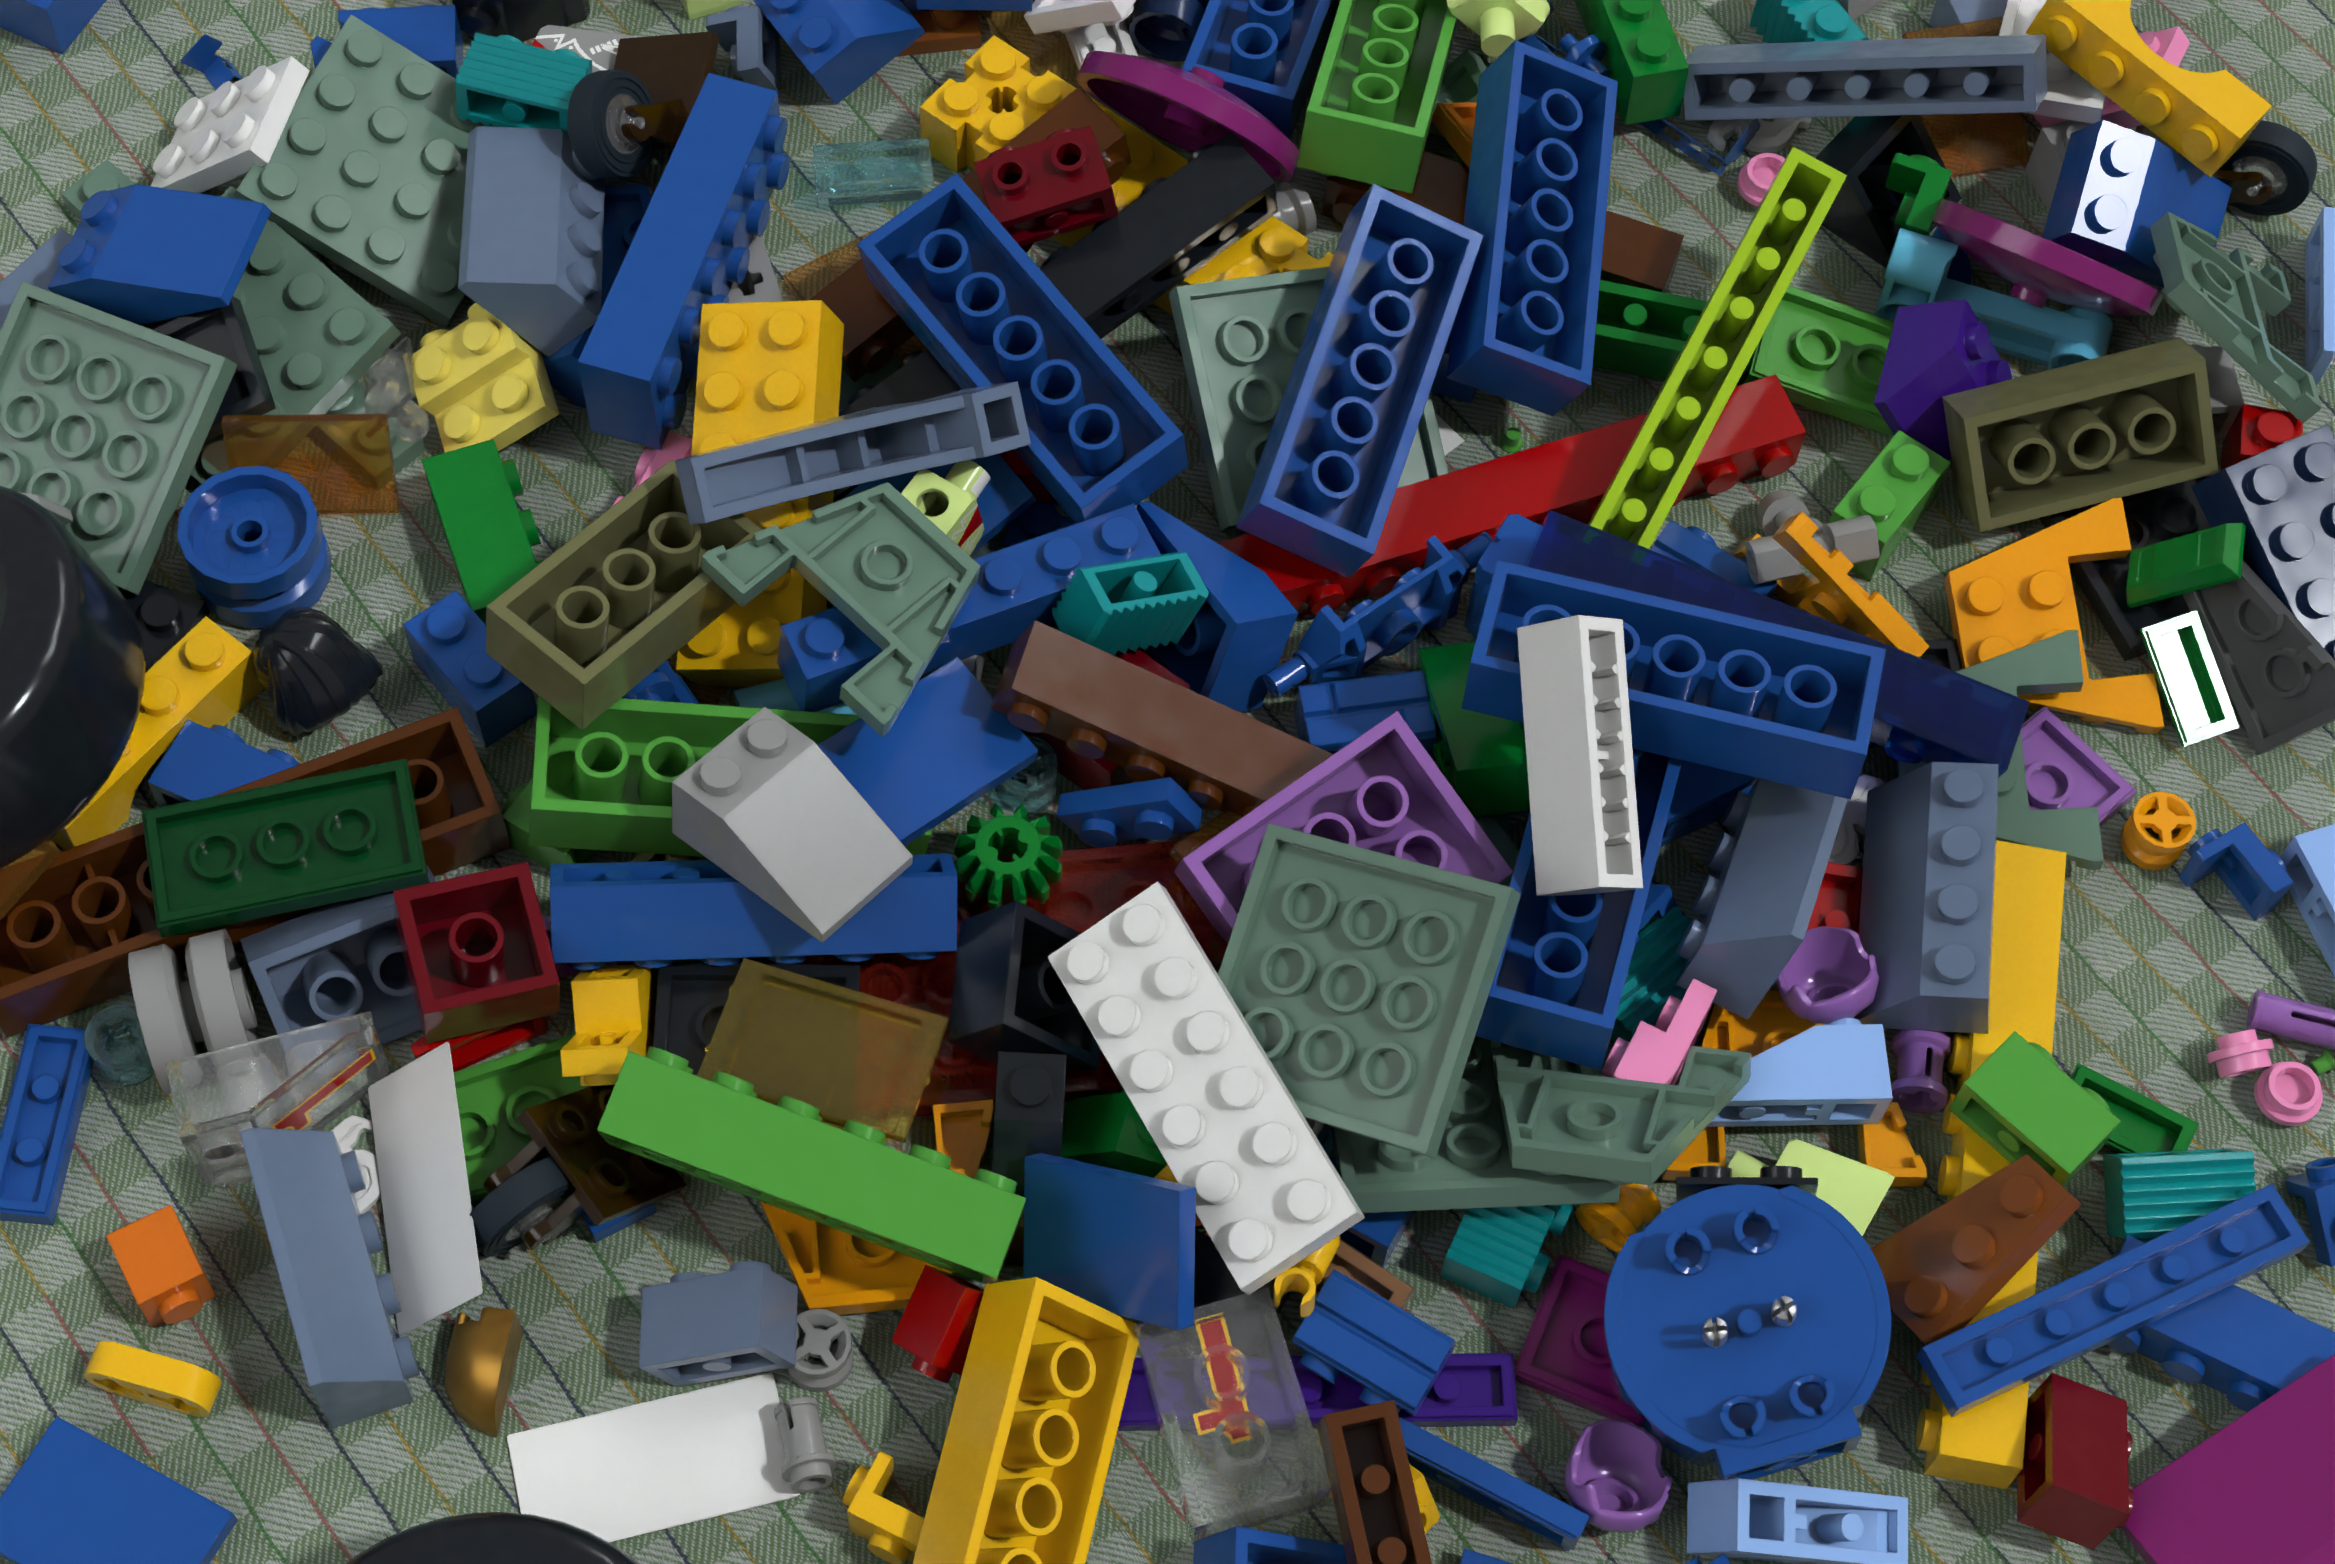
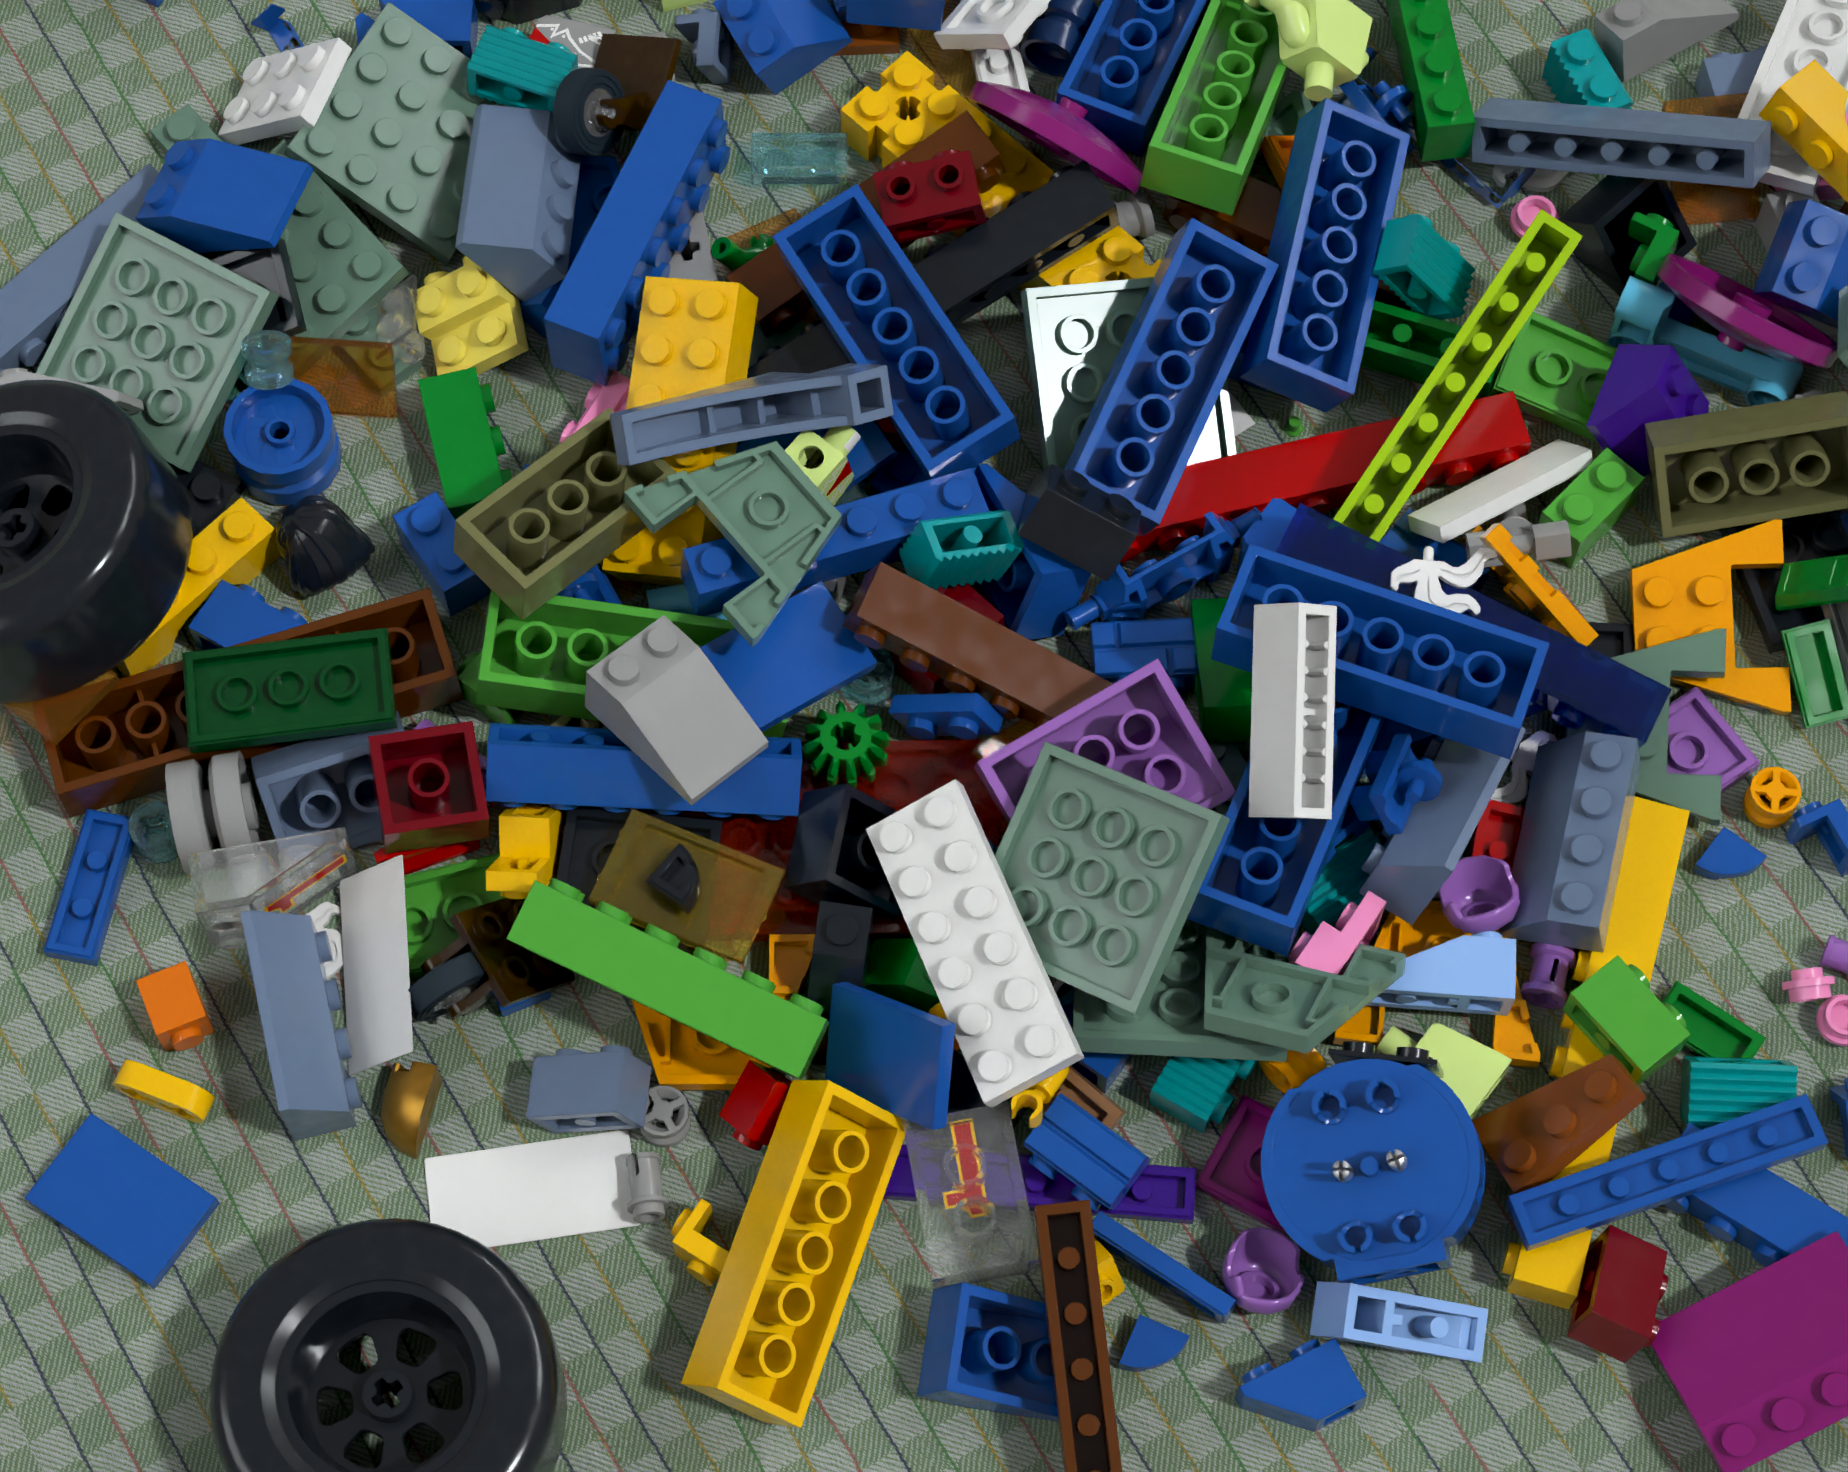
camera: 10 degrees right, 5 degrees up
(228, 444) = (267, 359): none -> clear light blue wheel
(802, 285) = (733, 255): none -> green arm
(810, 1042) = (677, 879): none -> black tile
(1275, 554) = (1078, 520): none -> black slope
(1653, 233) = (1423, 267): none -> teal brick
(1709, 845) = (1396, 785): none -> blue hips
(1716, 583) = (1428, 588): none -> white piece
(1777, 491) = (1500, 491): none -> white tile
(2116, 908) = (1729, 857): none -> blue tile

